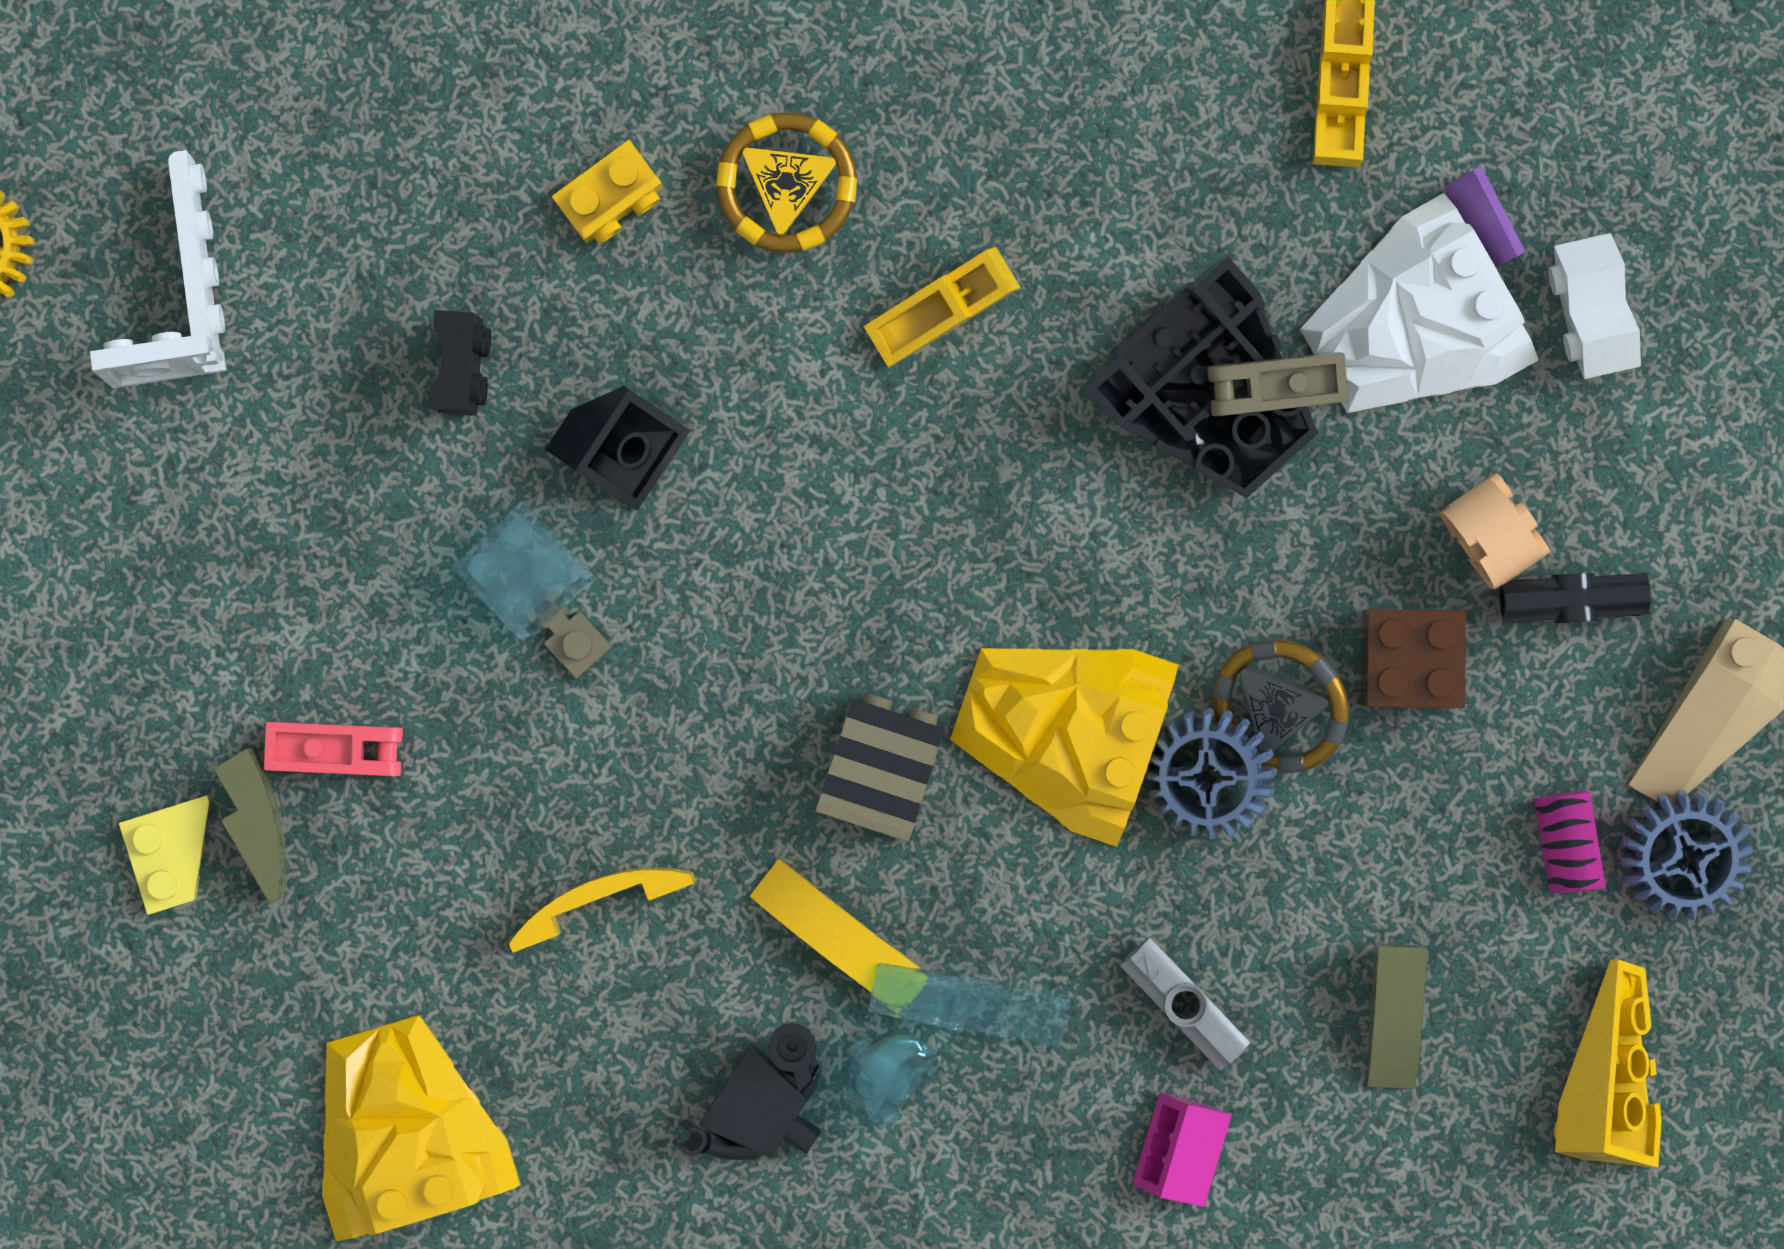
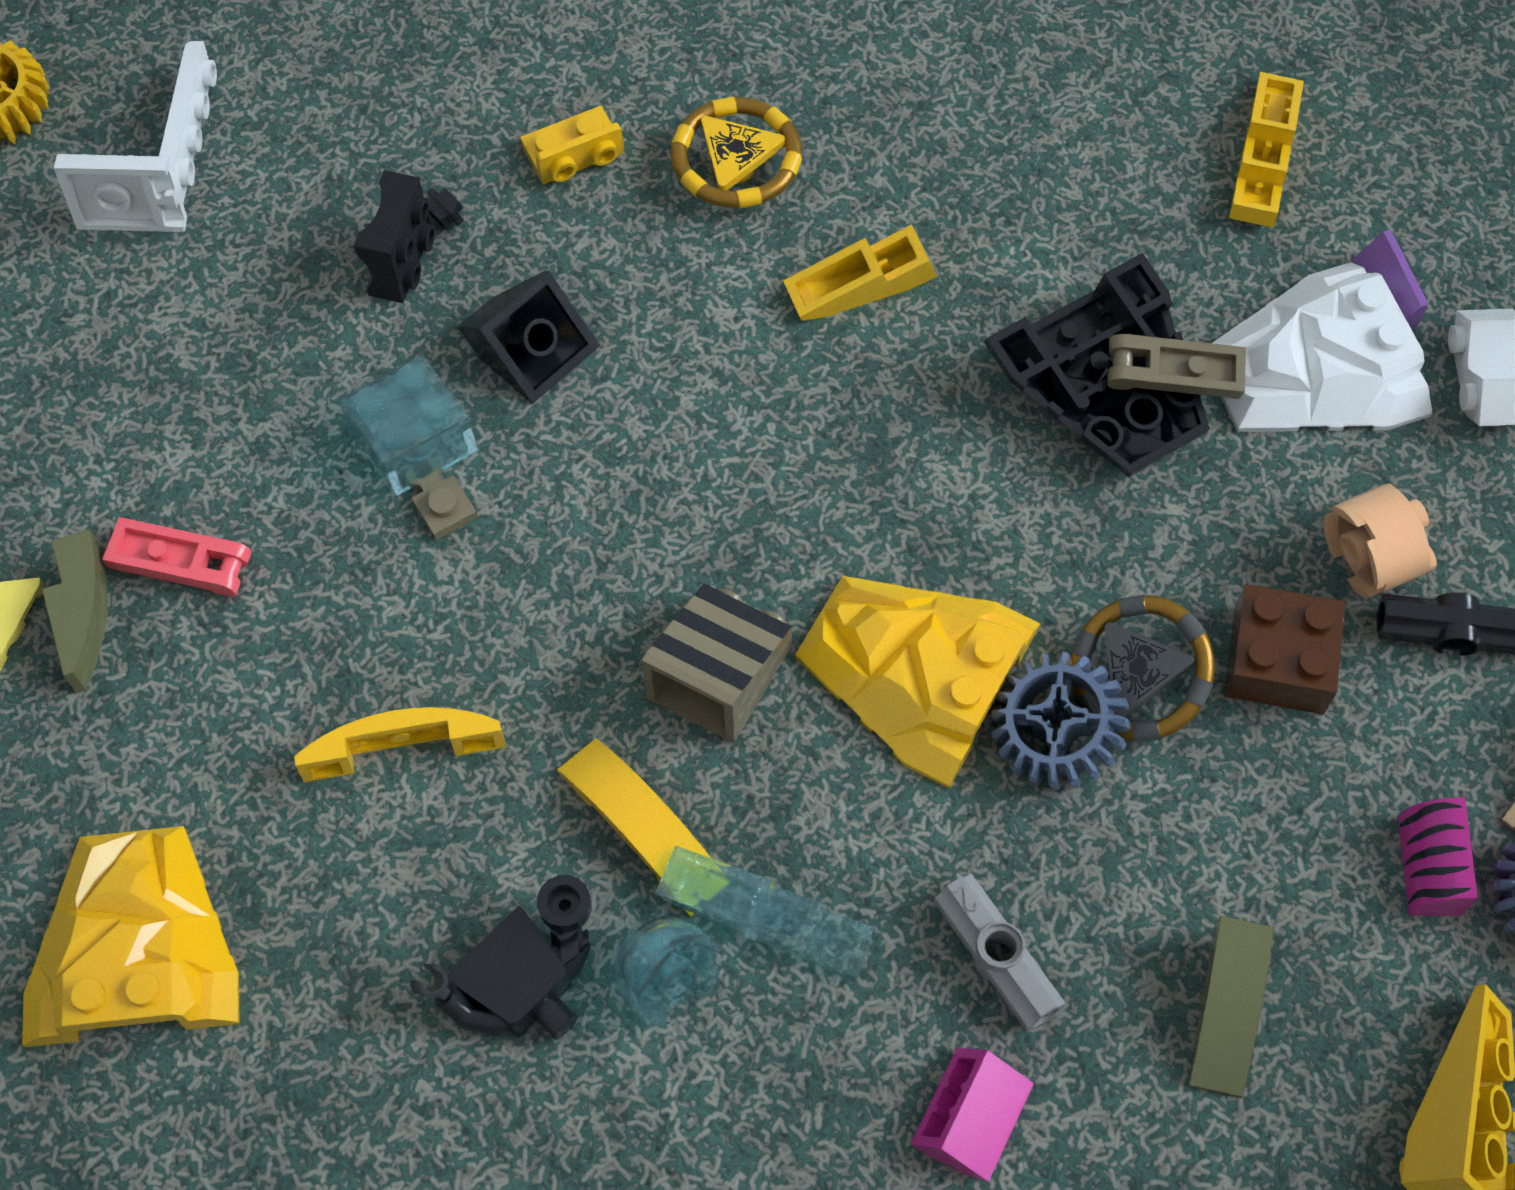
camera: 10 degrees right, 25 degrees down
(492, 302) = (444, 208): none -> black plate

